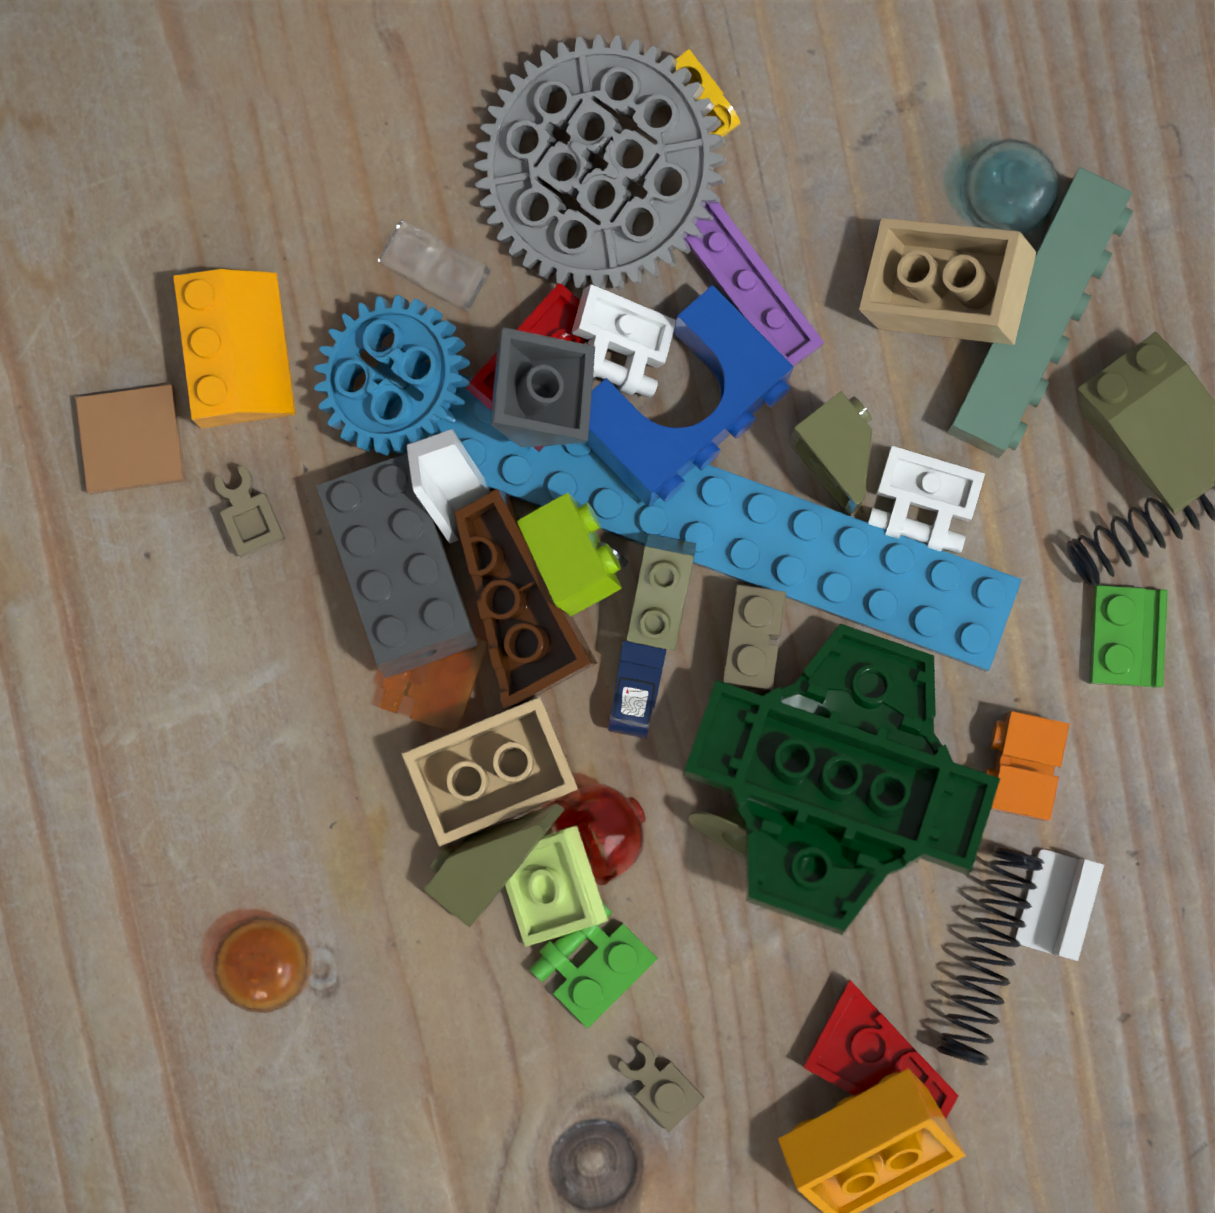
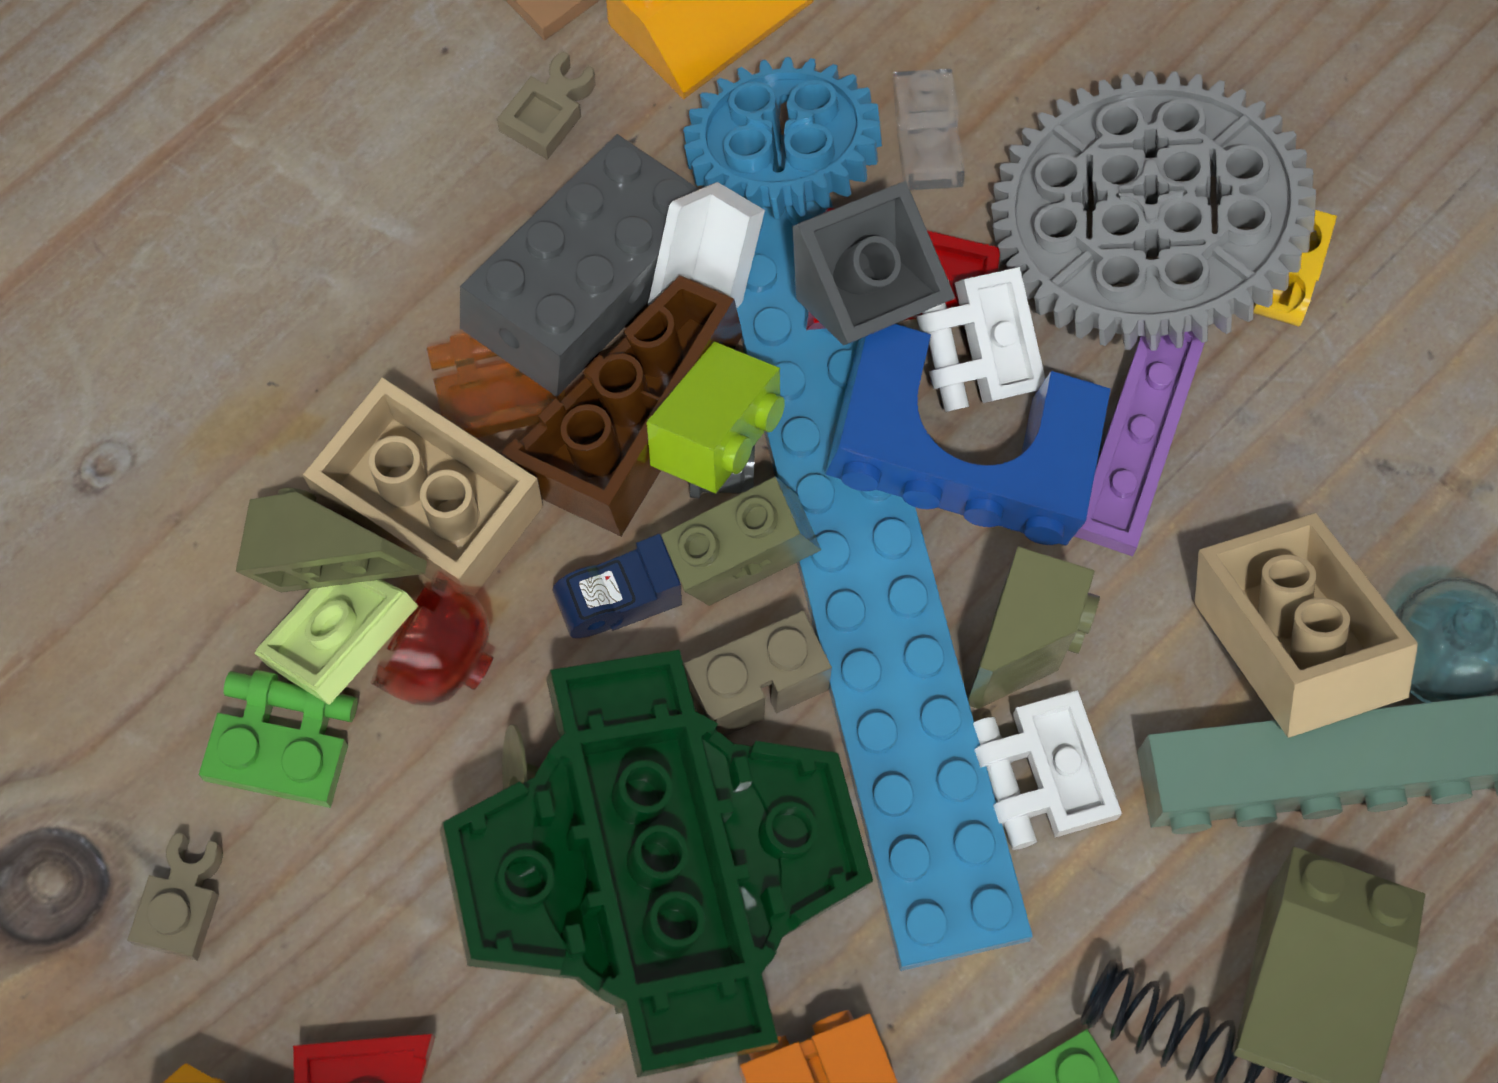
camera: 50 degrees right, 15 degrees down
(262, 963) = (73, 398): clear orange cylinder -> none

